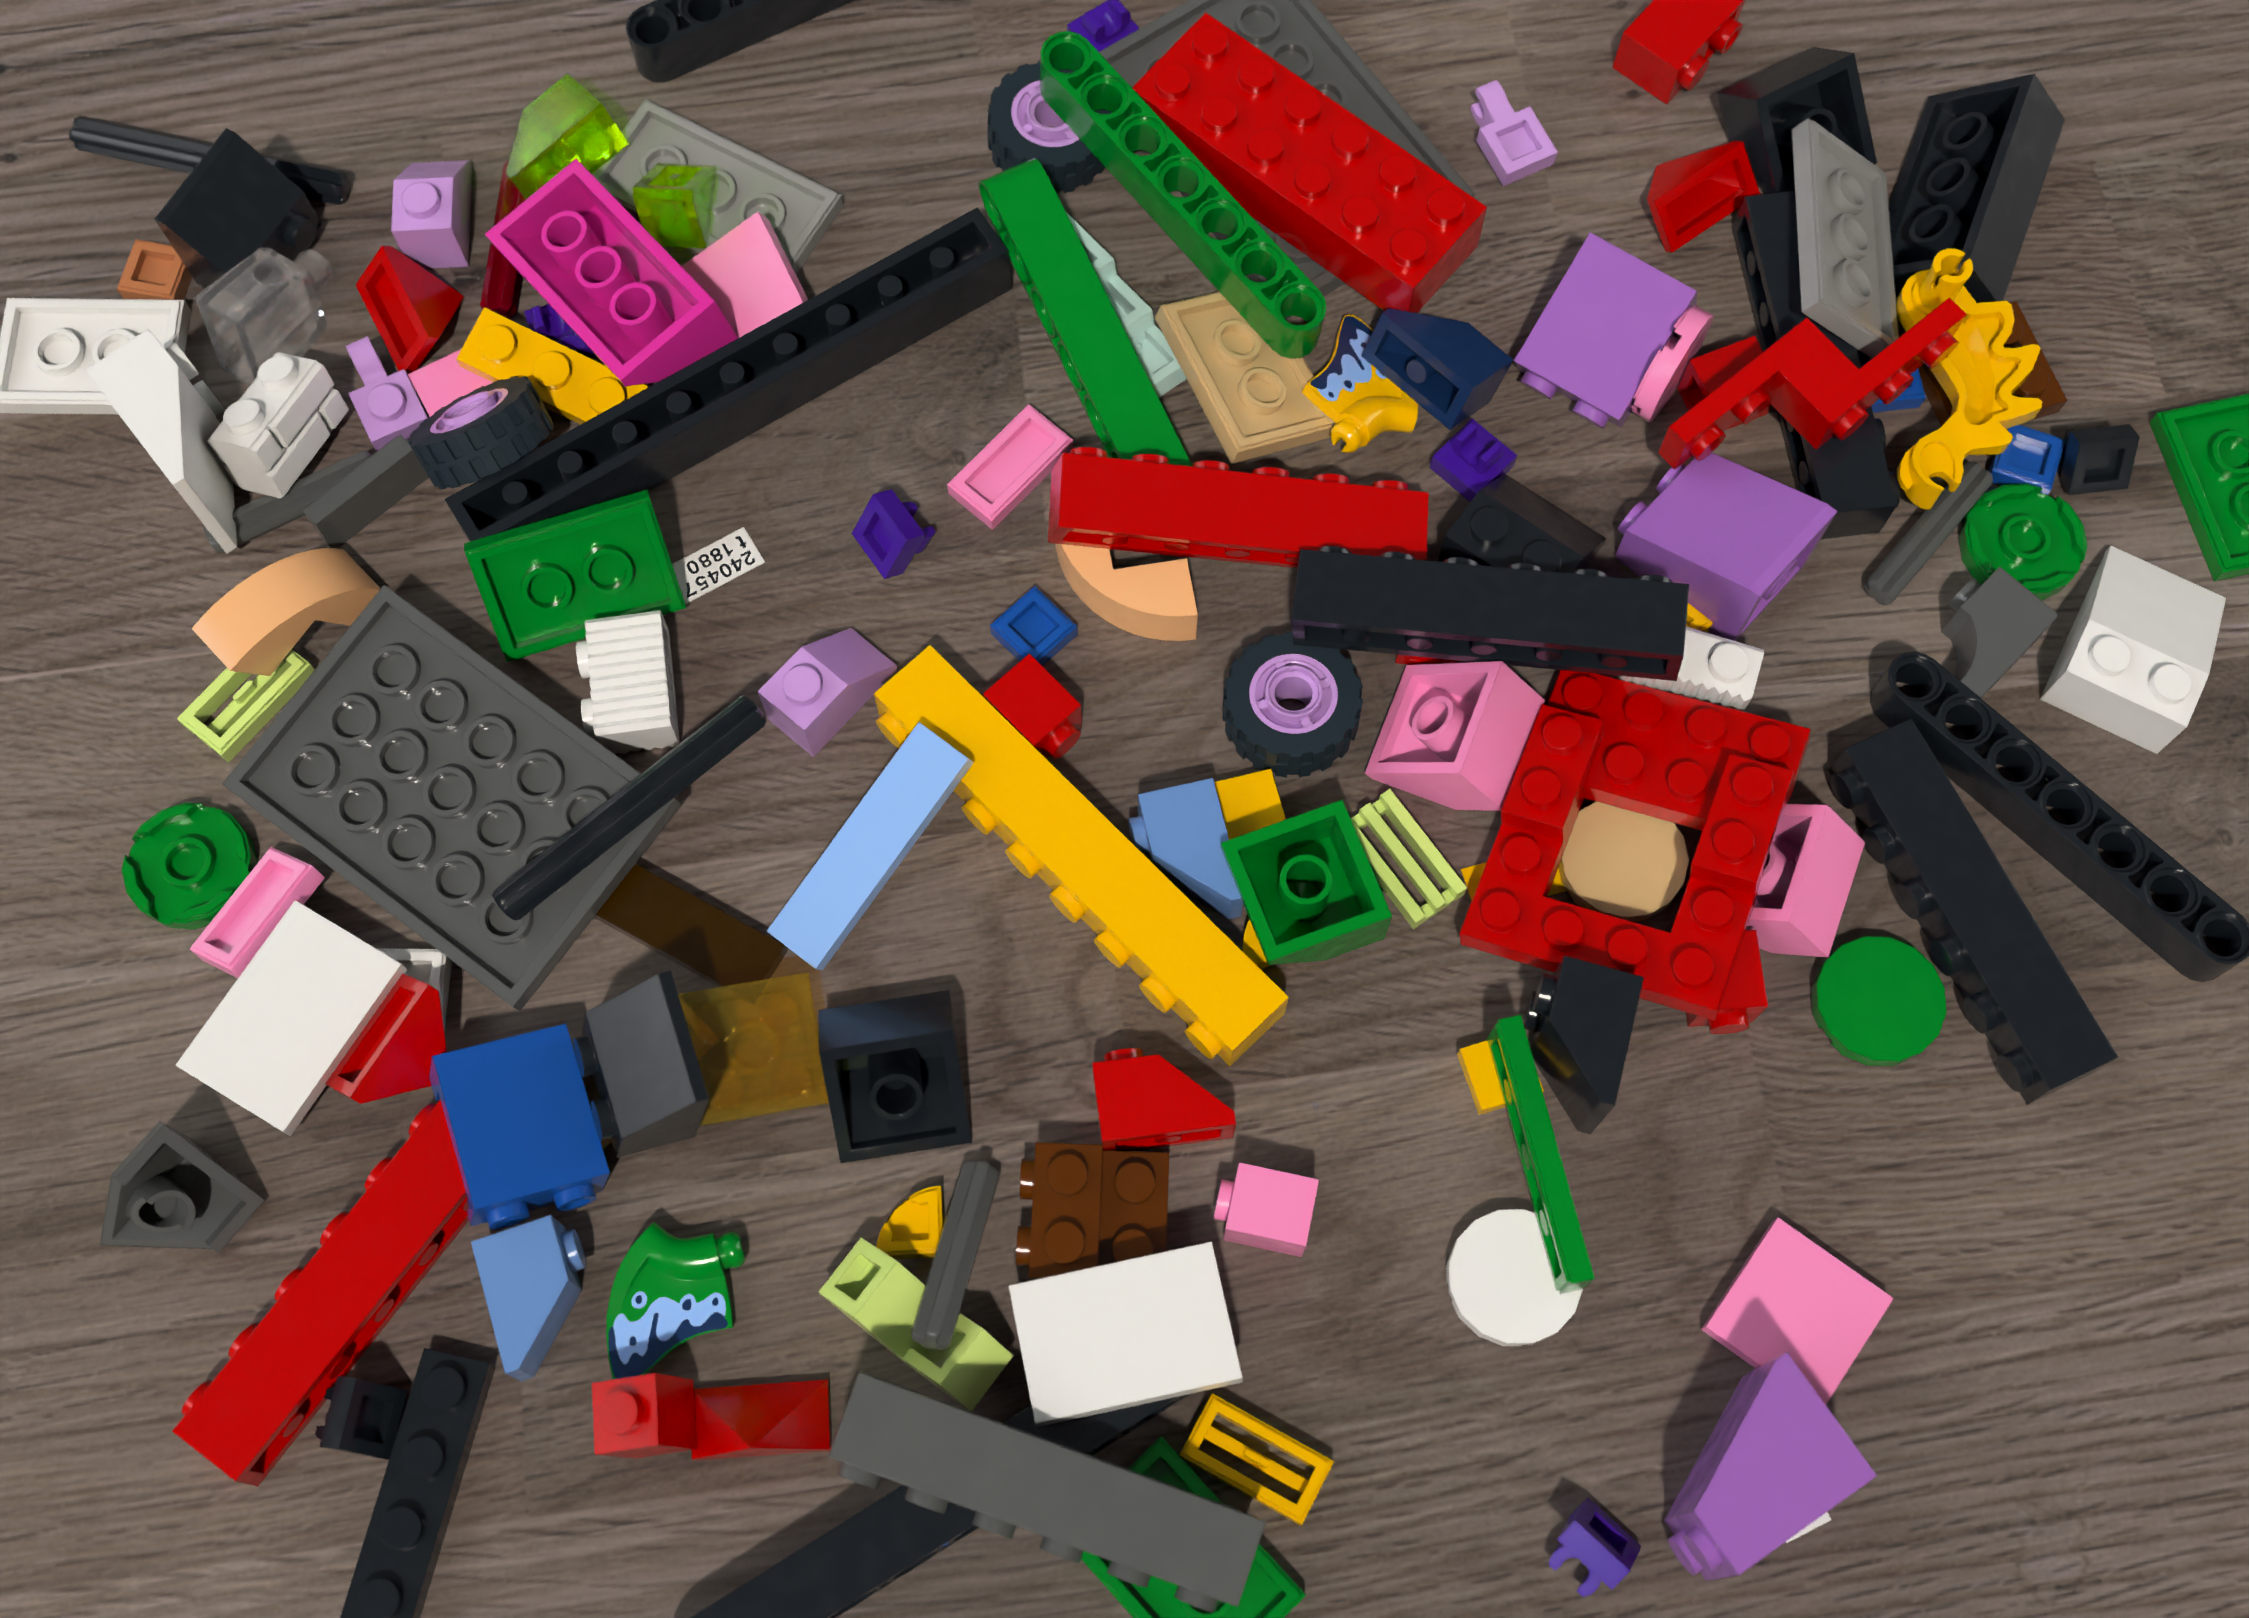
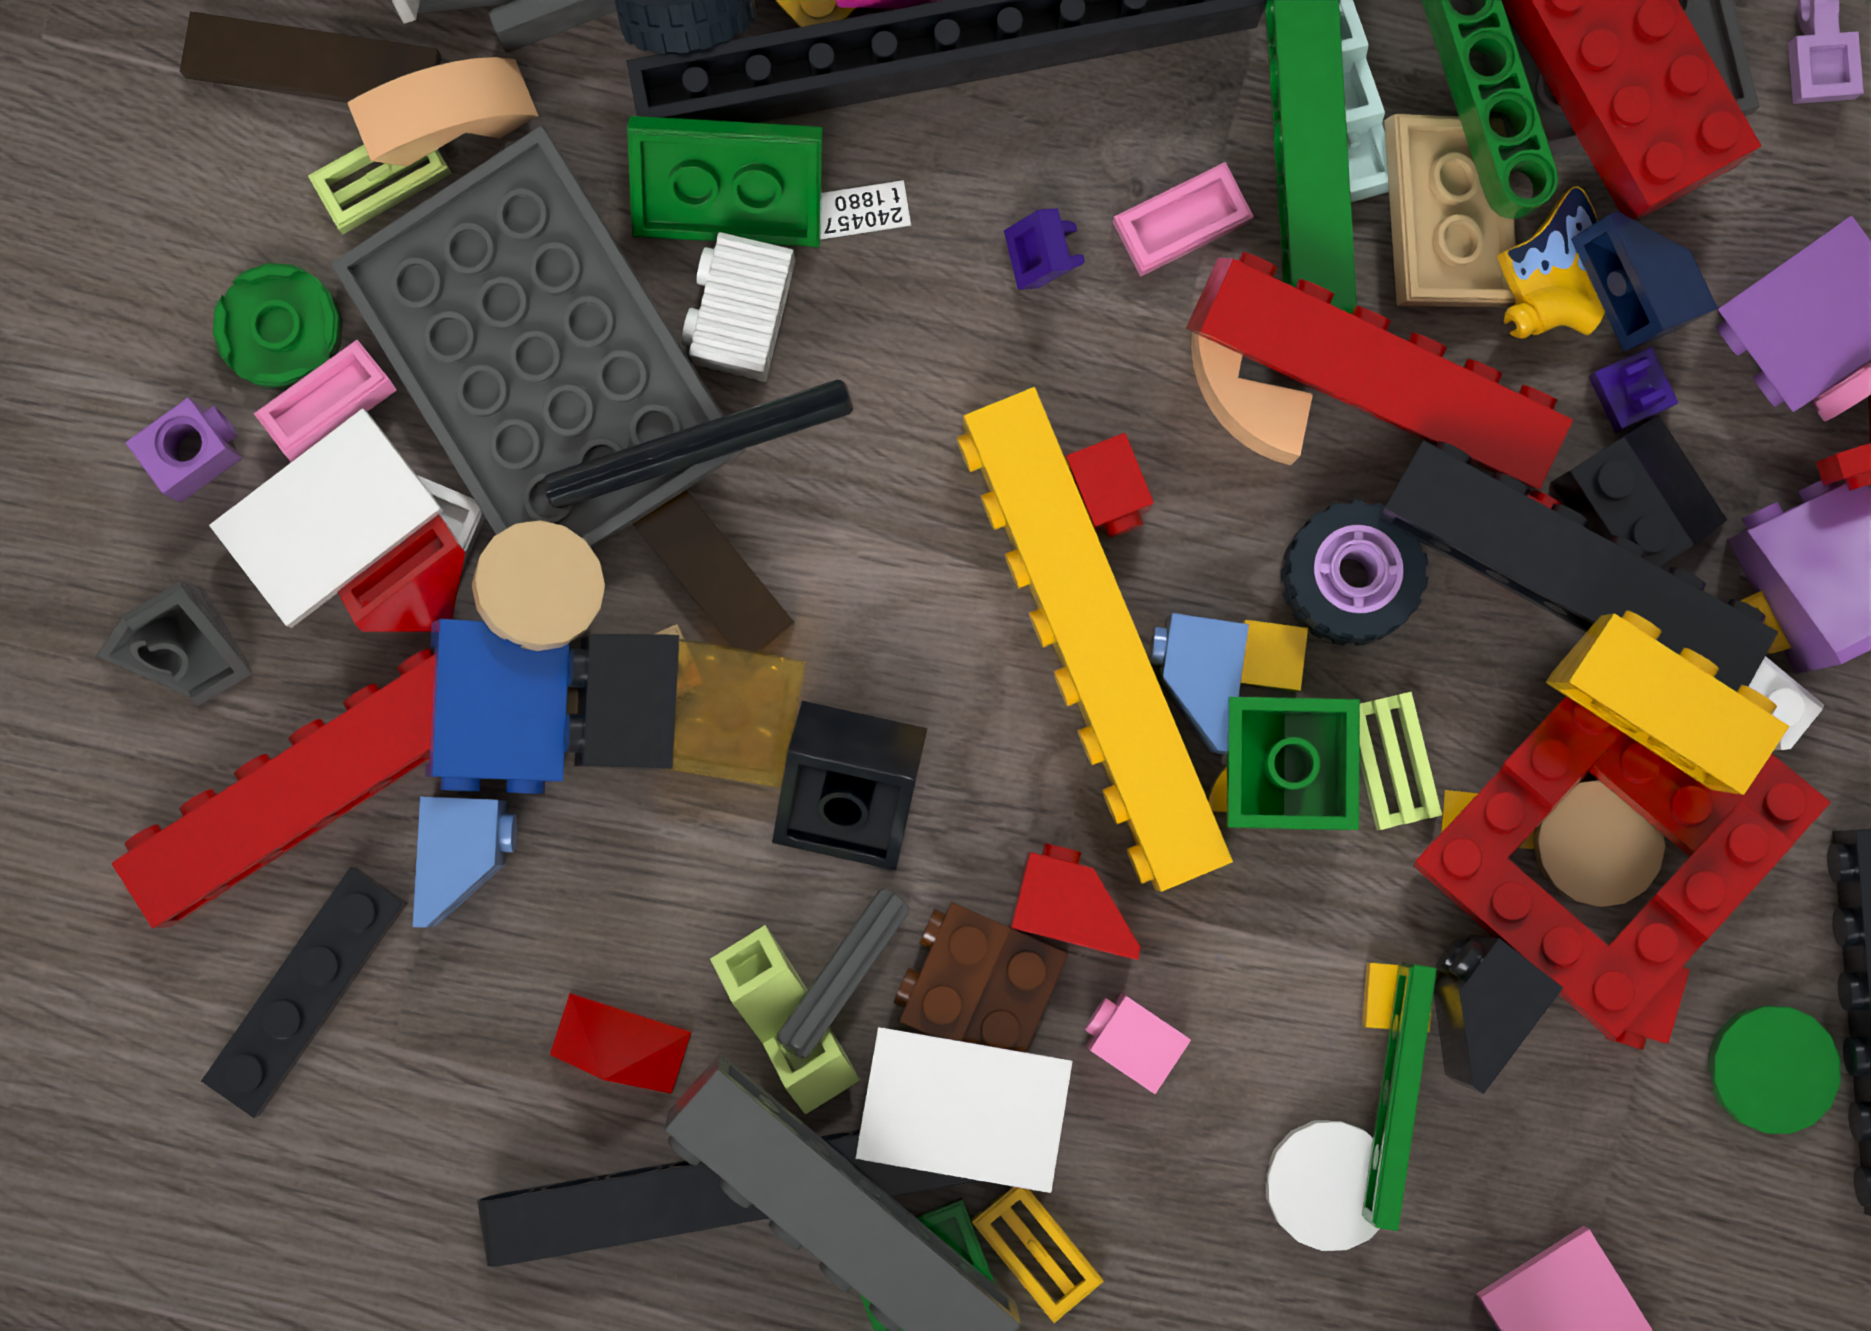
camera: 15 degrees right, 15 degrees up
(104, 1004) = (159, 442): none -> medium lavender brick
(120, 626) = (294, 58): none -> dark brown tile
(362, 1417) = (277, 909): black tile -> none
(520, 993) = (538, 585): none -> tan tile
(644, 1416) = (520, 1008): red brick -> none
(667, 1296) = (577, 904): arm -> none
(824, 687) = (923, 382): lavender slope -> none
(870, 846) = (907, 561): light blue tile -> none
(914, 1226) = (816, 927): yellow tile -> none
(1034, 628) = (1140, 397): blue tile -> none
(1456, 733) = (1491, 663): bright pink slope -> none
(1620, 682) = (1670, 702): none -> yellow slope
(1805, 881) = (1756, 940): bright pink slope -> none

